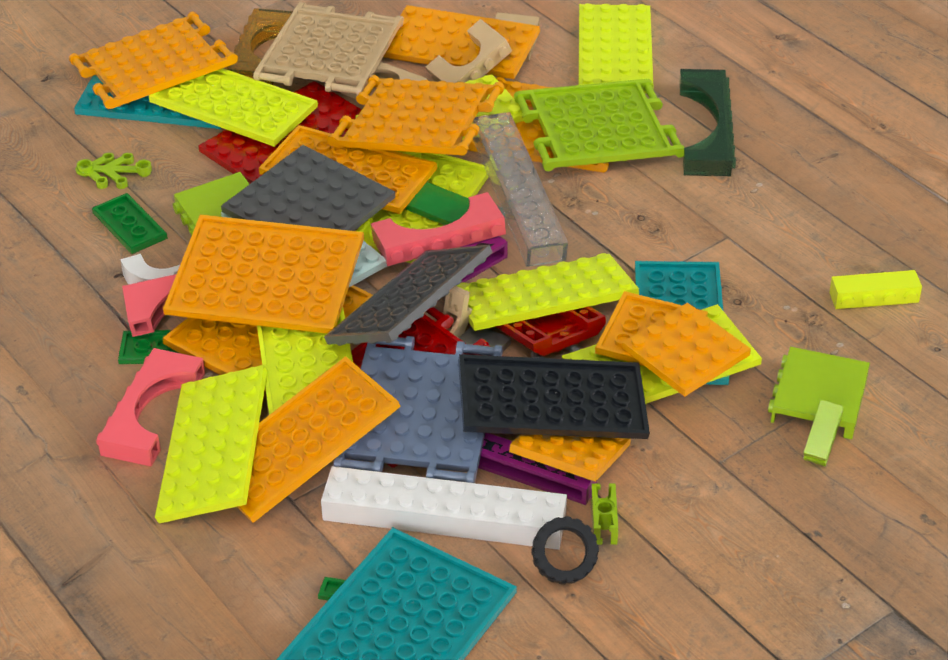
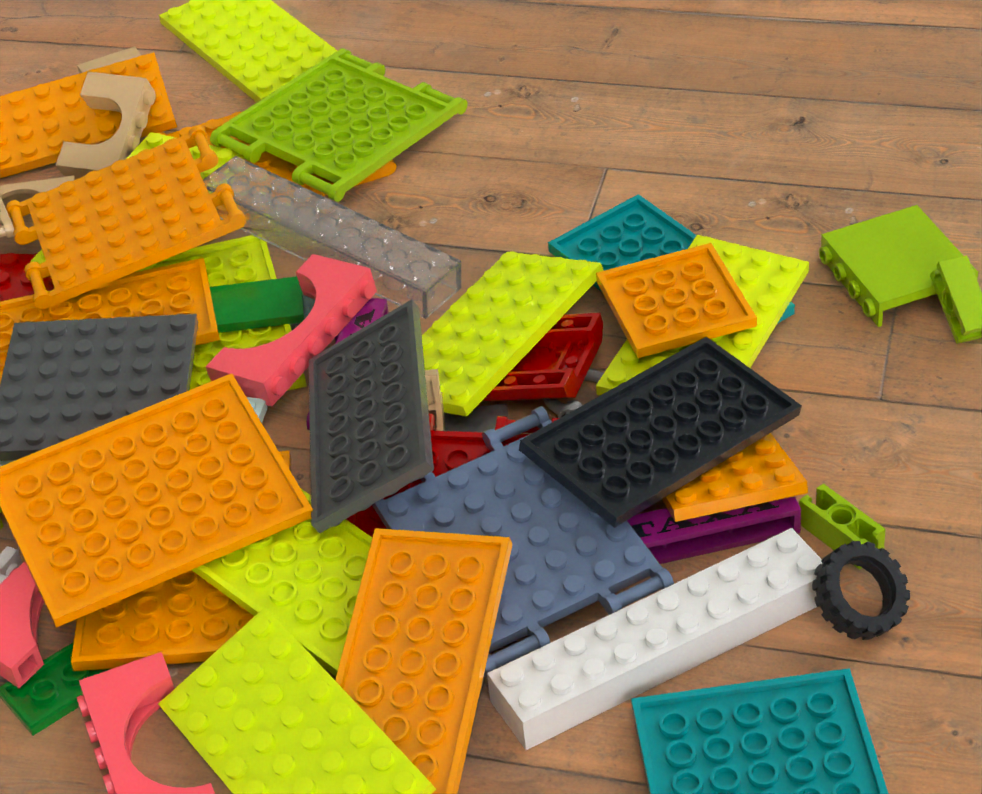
camera: 35 degrees left, 0 degrees up
(686, 349) = (739, 293): light orange plate -> none
(715, 153) = (498, 89): clear green arch -> none
(875, 289) = (823, 135): neon yellow brick -> none

